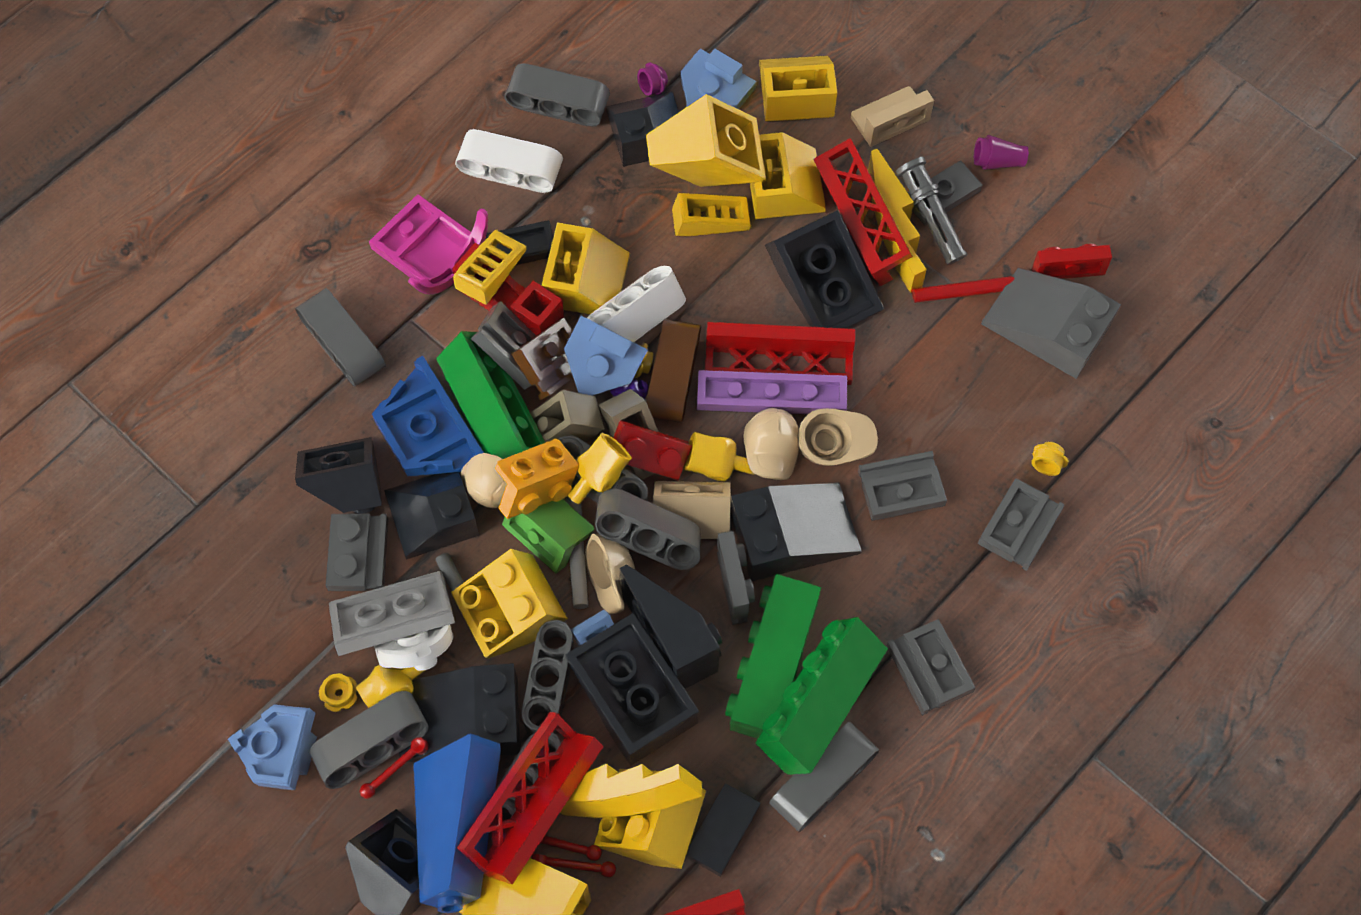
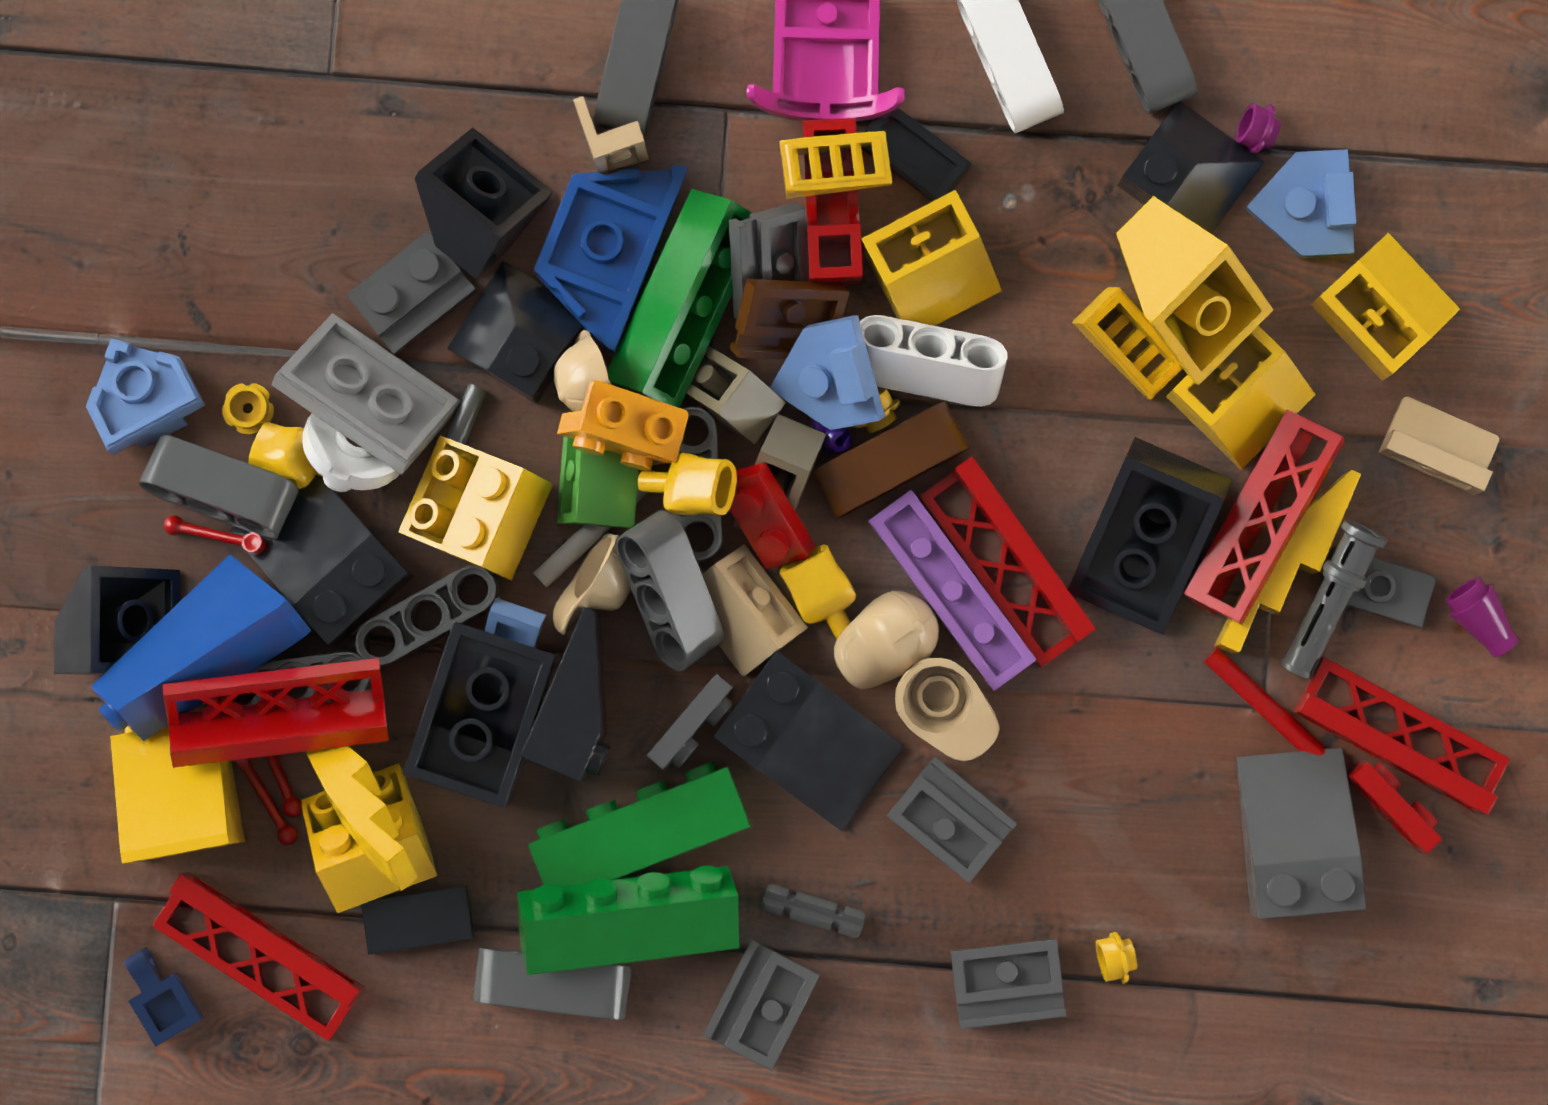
camera: 55 degrees right, 20 degrees up
(370, 381) = (613, 148): none -> tan panel
(896, 599) = (813, 911): none -> dark grey axle
(1023, 249) = (1392, 752): none -> red fence

